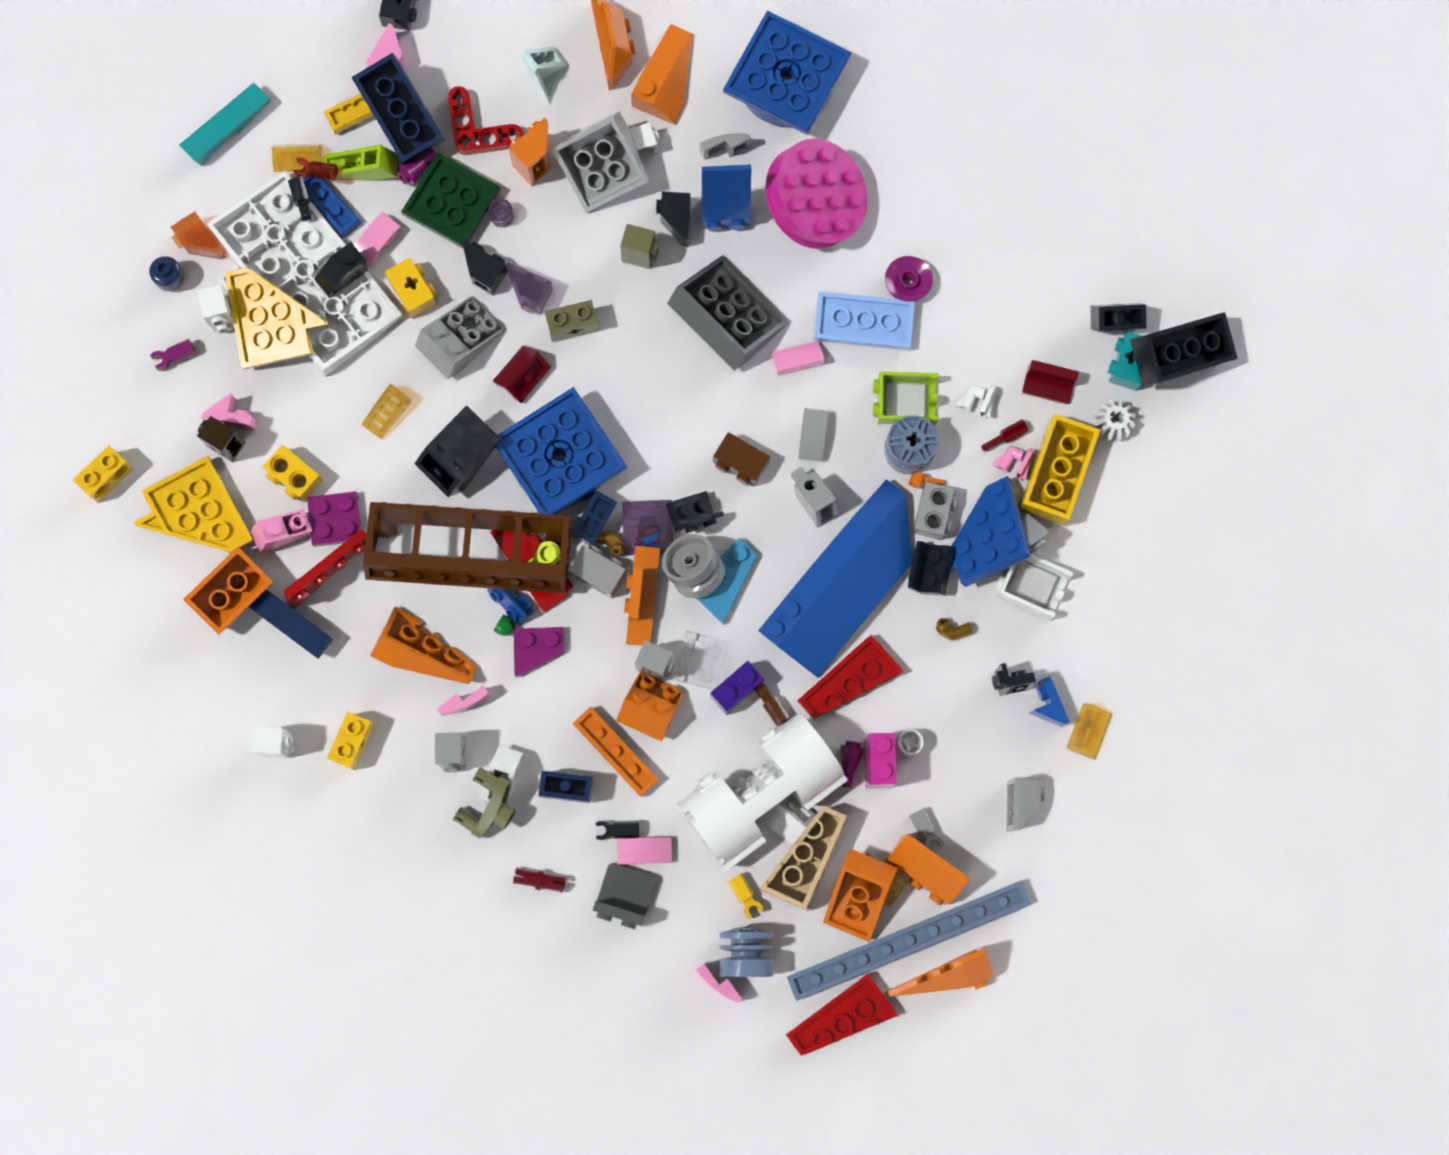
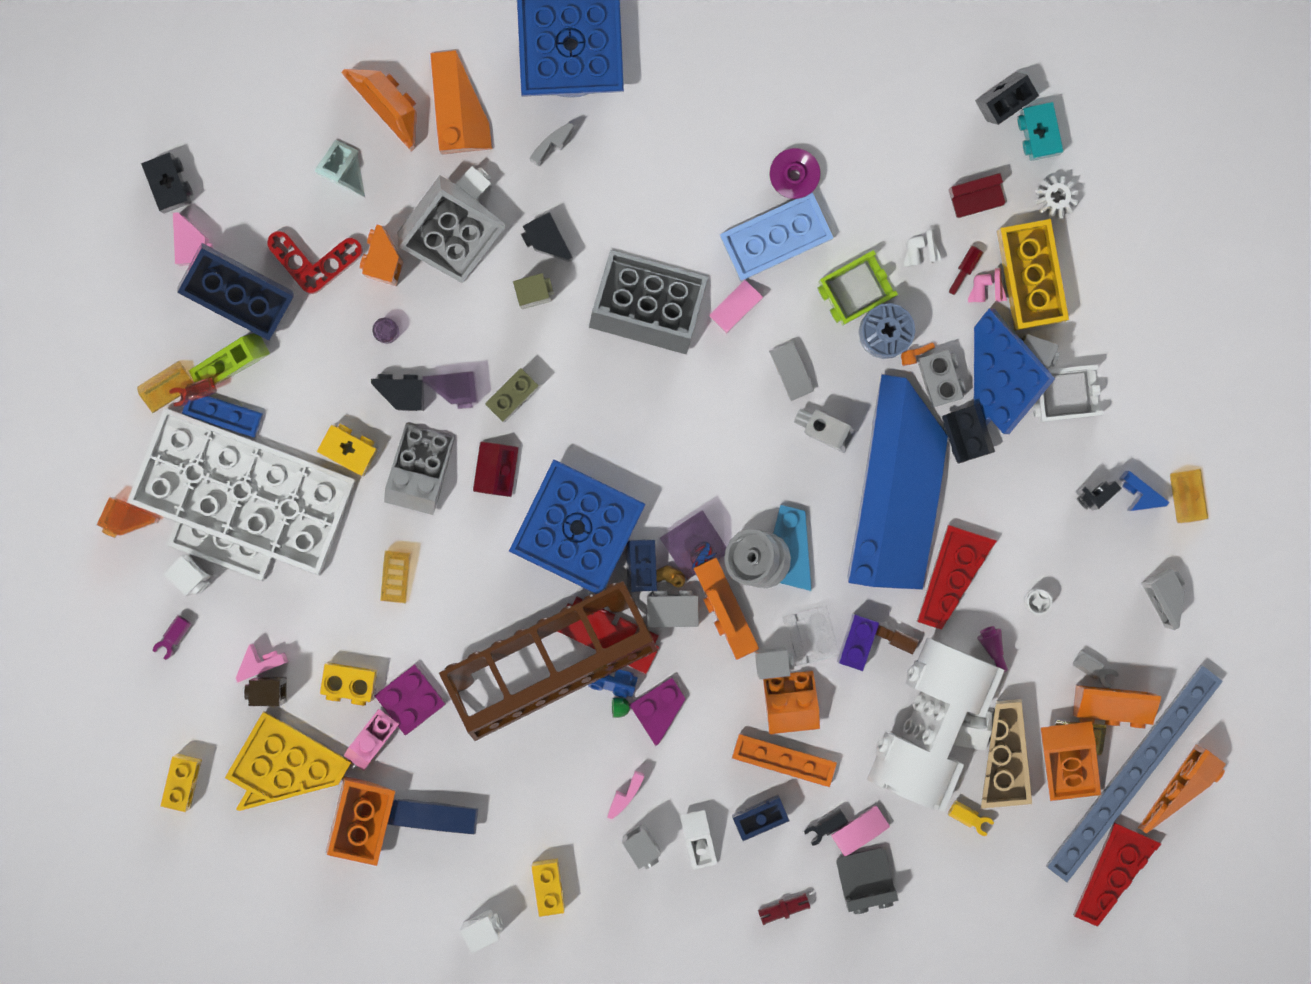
camera: 25 degrees left, 10 degrees up
(166, 273) = (120, 568): dark blue head -> none
(223, 124) = (81, 395): teal slope -> none
(267, 320) = (241, 559): yellow wing -> none
(300, 197) = (196, 426): black bar -> none
(320, 573) = (438, 741): red wing -> none
(341, 270) = (276, 474): black slope -> none
(348, 113) = (186, 320): yellow plate -> none
(376, 237) = (287, 422): bright pink slope -> none
(412, 170) = (280, 339): magenta cone -> none
(413, 648) = (551, 773): orange wedge -> none
(450, 200) = (332, 346): dark green plate -> none
(458, 452) = (486, 580): black slope -> none
(496, 811) = (714, 874): olive connector -> none
(546, 553) = (620, 622): neon yellow plate -> none
(692, 511) = (727, 509): black bracket -> none
(724, 988) = (997, 908): bright pink slope -> none
(726, 197) = (588, 203): blue slope -> none
(740, 459) = (740, 433): reddish brown brick -> none
(746, 953) = (1004, 875): sand blue wheel -> none
(816, 193) = (666, 146): dark pink wheel -> none
(880, 761) = (1022, 636): dark pink brick -> none
(952, 632) = (1018, 478): pearl gold arm -> none
(1183, 349) = (1085, 97): black brick -> none

